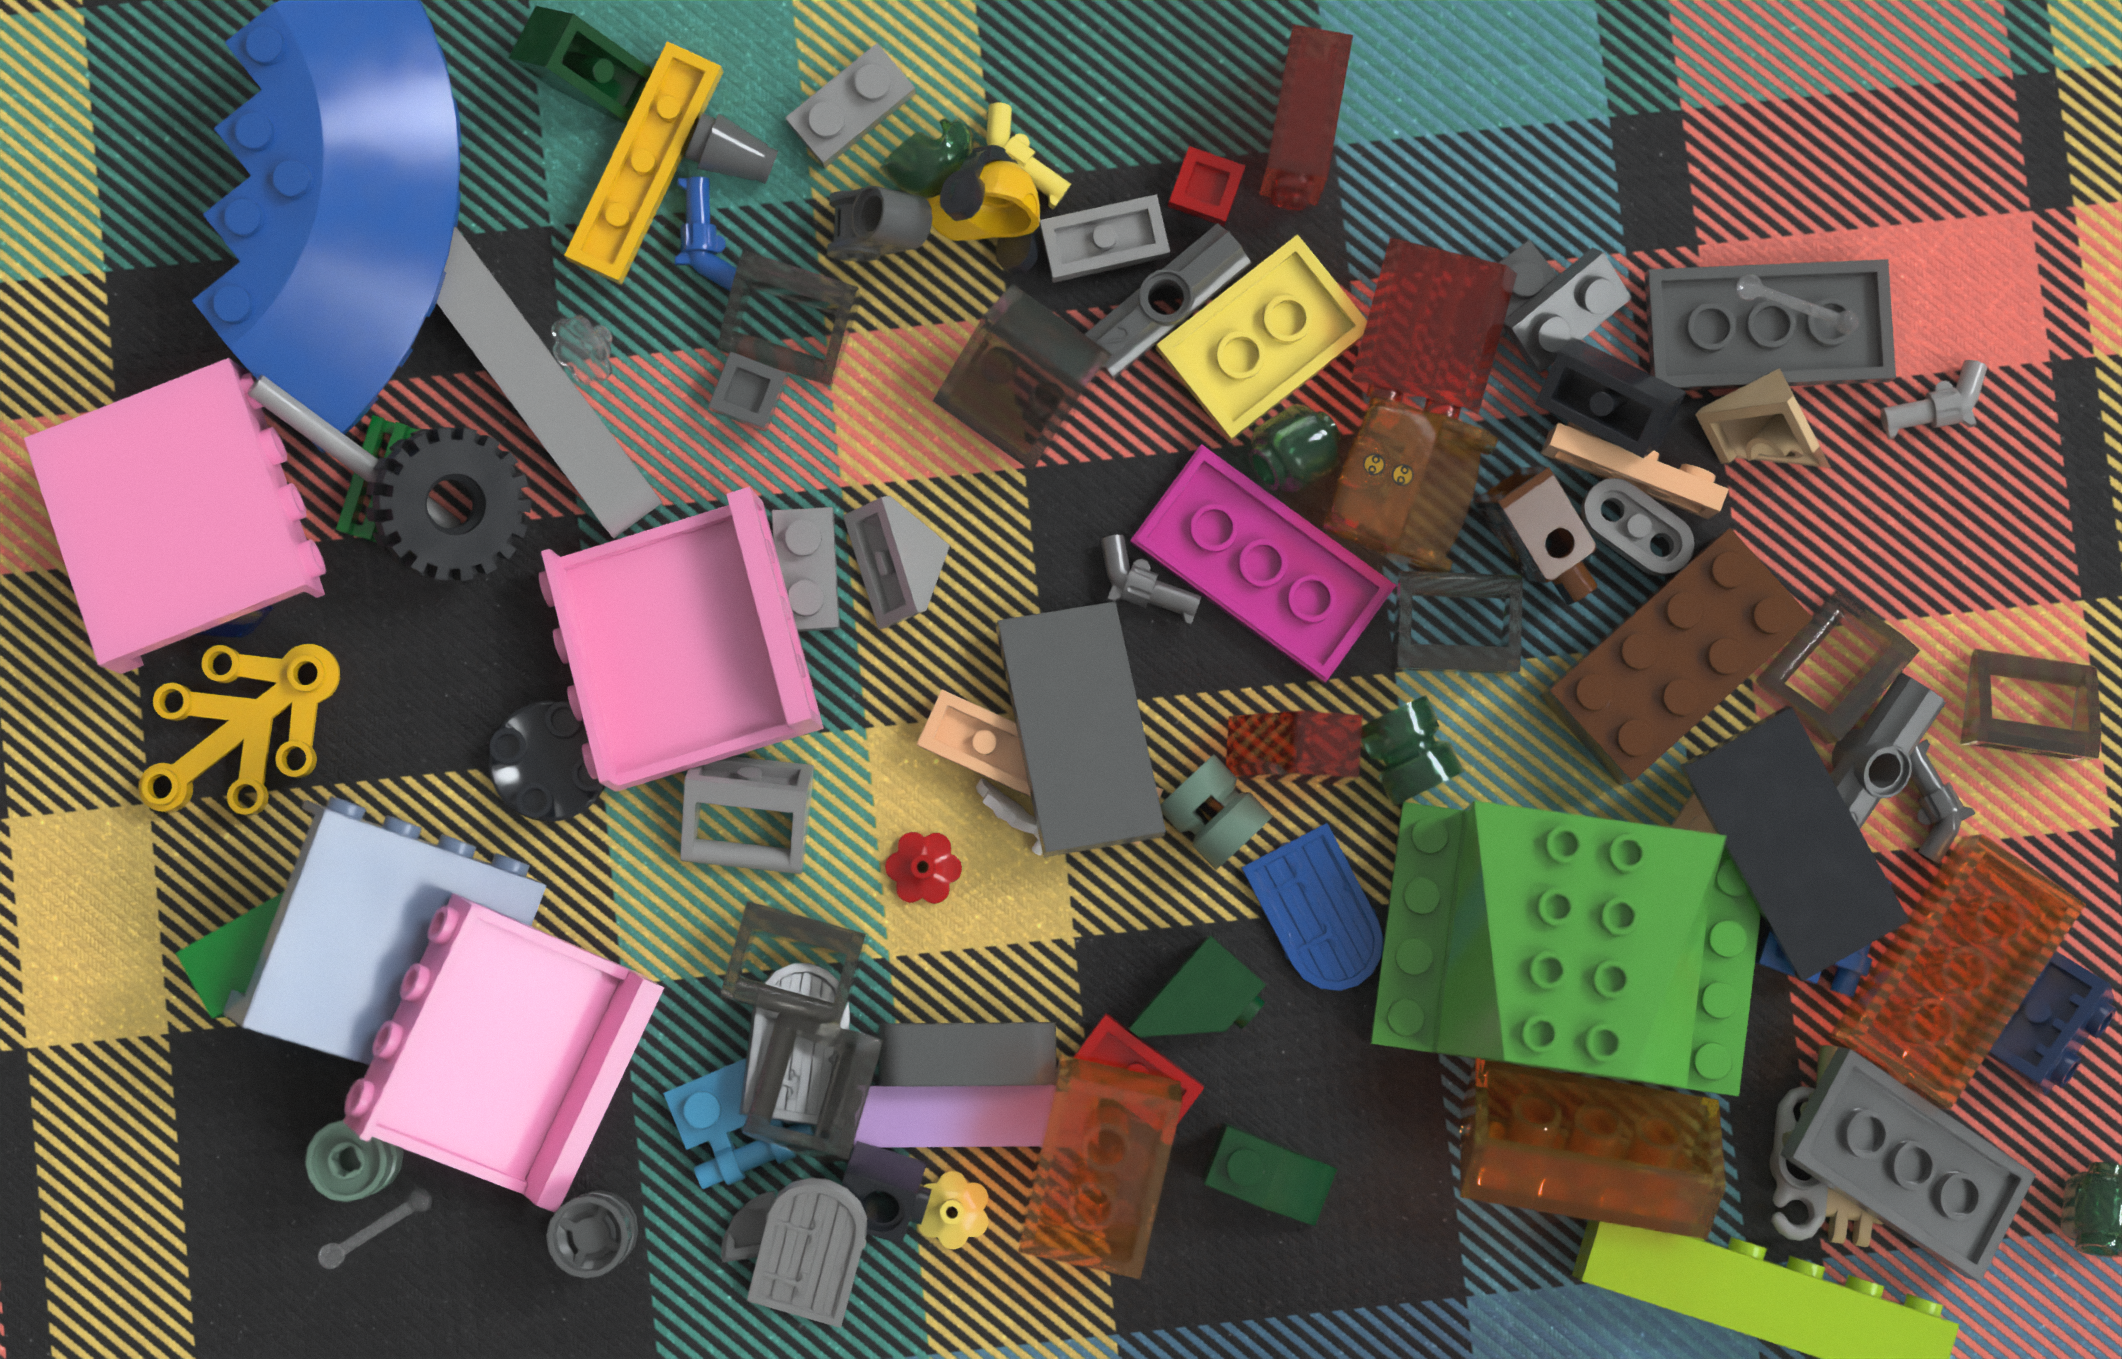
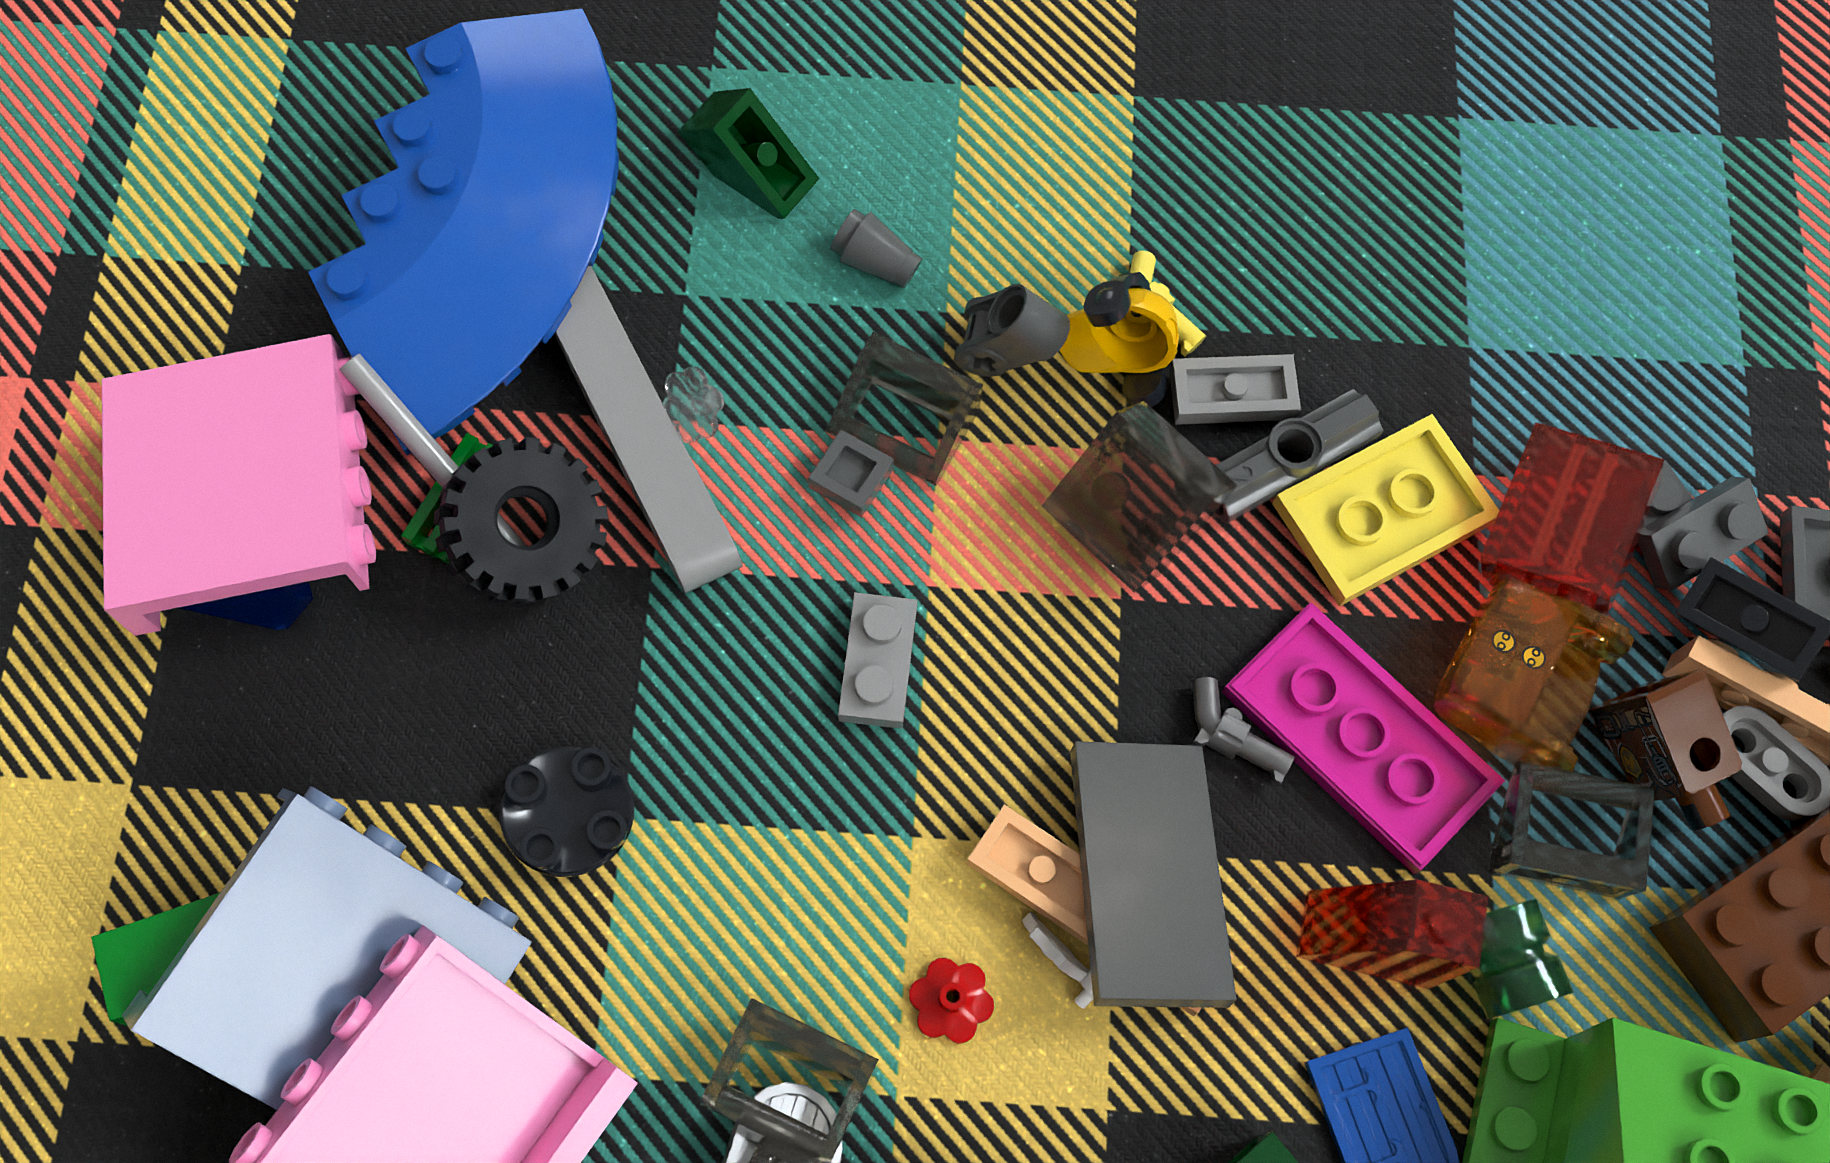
camera: 10 degrees right, 15 degrees down
(247, 723) = (256, 716): yellow plant -> none
(644, 163) = (786, 250): yellow plate -> none
(680, 645) = (732, 712): bright pink panel -> none
(699, 237) = (829, 322): blue piece -> none
(748, 785) = (776, 872): light grey tile -> none
(850, 105) = (999, 233): light grey plate -> none
(896, 559) = (973, 662): light grey slope -> none
(926, 162) = (1069, 285): clear green hair -> none
(1206, 186) = (1342, 357): red plate -> none
(1227, 829) = (1303, 1011): sand green wheel -> none
(1294, 448) = (1410, 620): clear green head -> none
(1305, 117) = (1455, 300): clear red brick -> none

